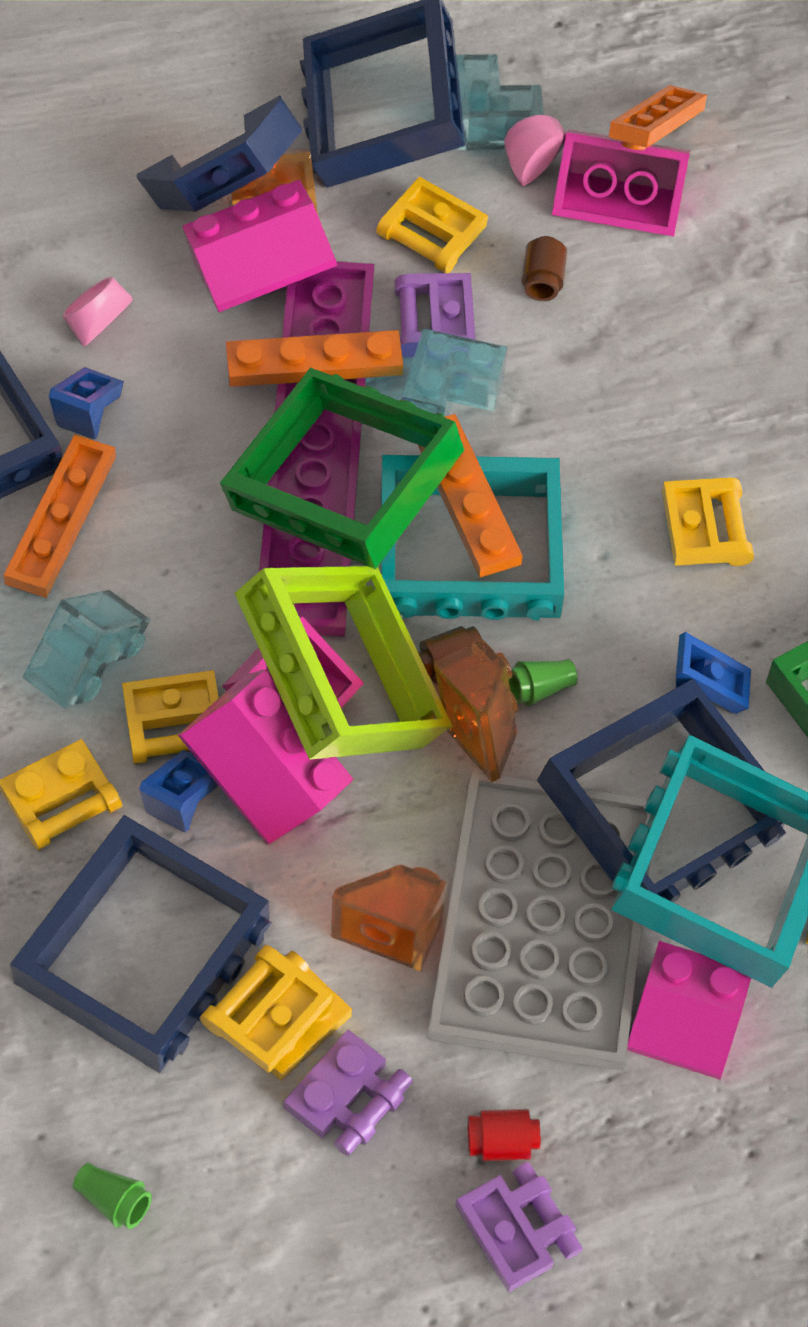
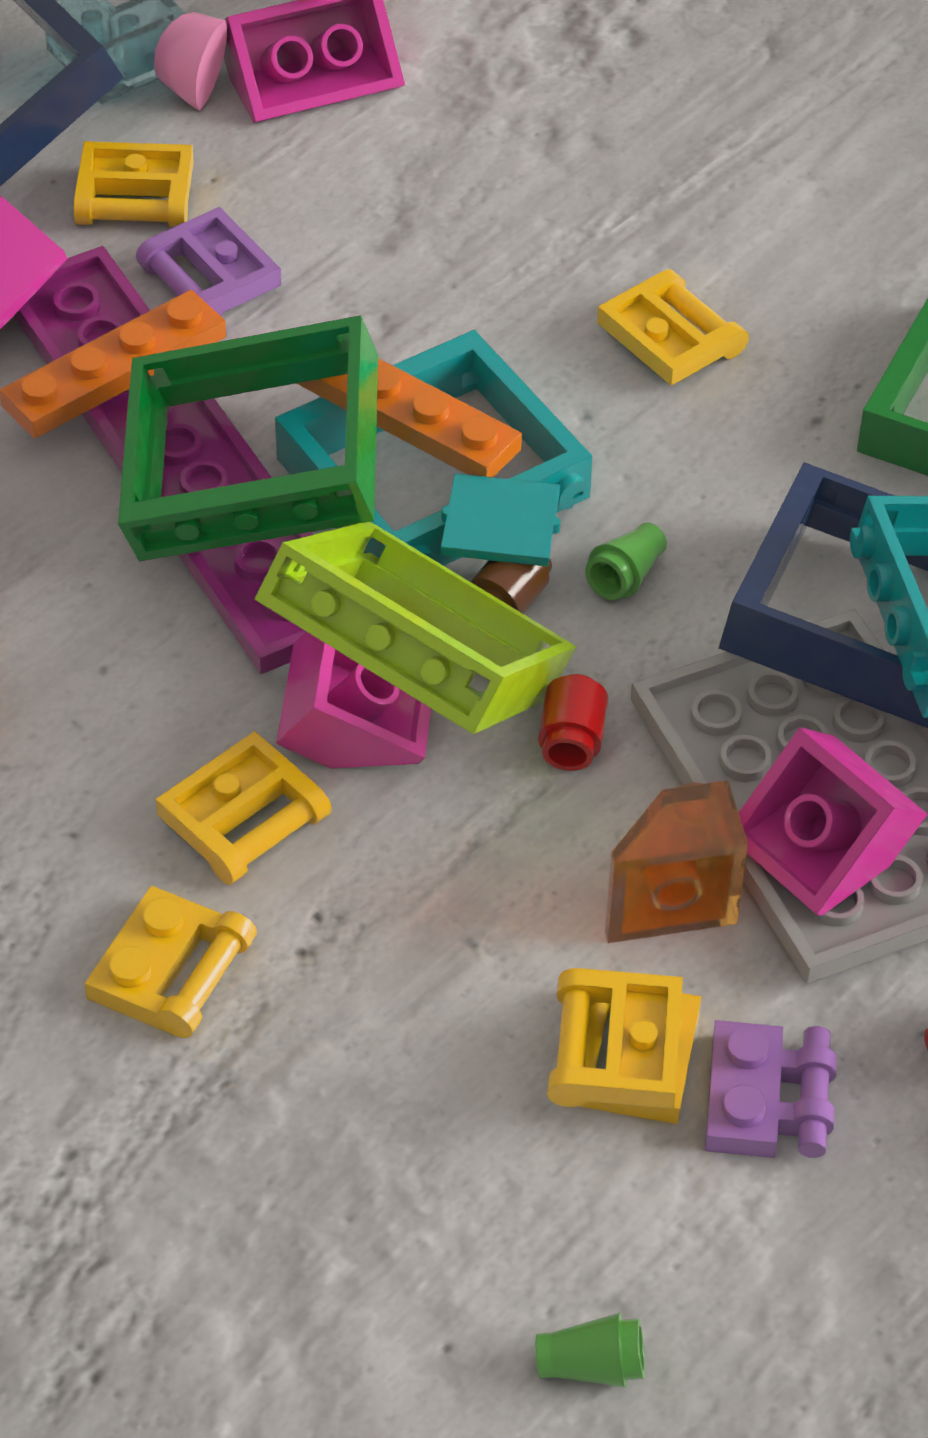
camera: 30 degrees left, 10 degrees down
(81, 642) = (81, 782): clear light blue brick -> none
(83, 895) = (407, 1167): dark blue window -> none
(176, 789) = (317, 880): blue slope -> none
(260, 760) = (400, 775): dark pink slope -> none
(415, 775) = (572, 722): none -> red brick
(455, 371) = (283, 296): clear light blue brick -> none
(466, 607) = (500, 520): none -> teal piece
(479, 704) = (596, 603): clear orange slope -> none
(507, 940) = (826, 820): none -> dark pink slope
(544, 268) = (295, 168): reddish brown brick -> none
(717, 674) = (783, 450): blue slope -> none

